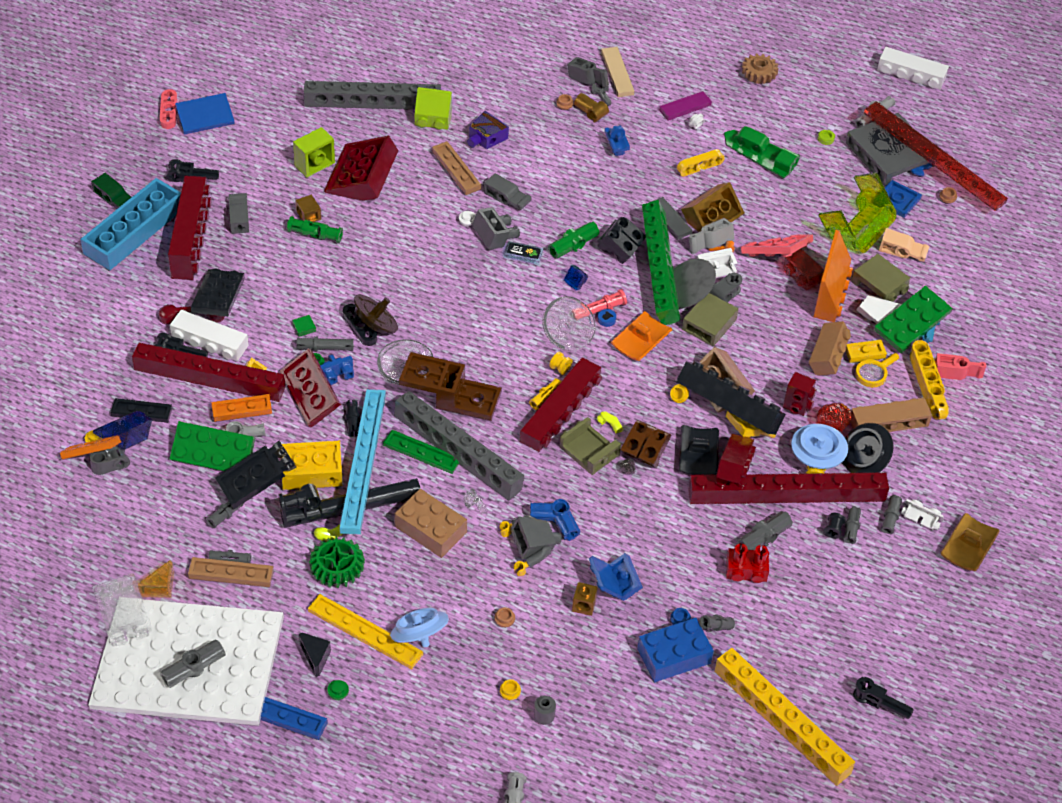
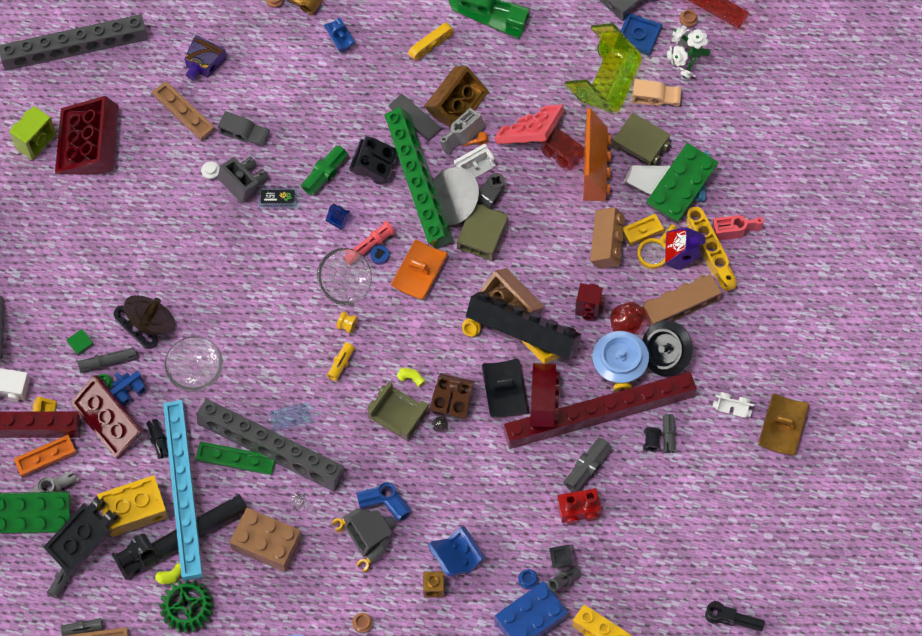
camera: 10 degrees left, 15 degrees up
(308, 208) = (45, 202): pearl gold brick -> none
(313, 228) = (56, 224): green piece -> none
(433, 108) = (141, 46): lime slope -> none
(451, 388) = (245, 381): reddish brown bracket -> none
(485, 428) = (290, 416): none -> clear light blue tile
(560, 405) = (358, 371): dark red brick -> none
(720, 602) = (562, 556): none -> black brick
(891, 514) = (703, 412): dark grey pin -> none
(902, 370) = (682, 247): none -> dark purple torso
(942, 212) = (677, 54): none -> white plant

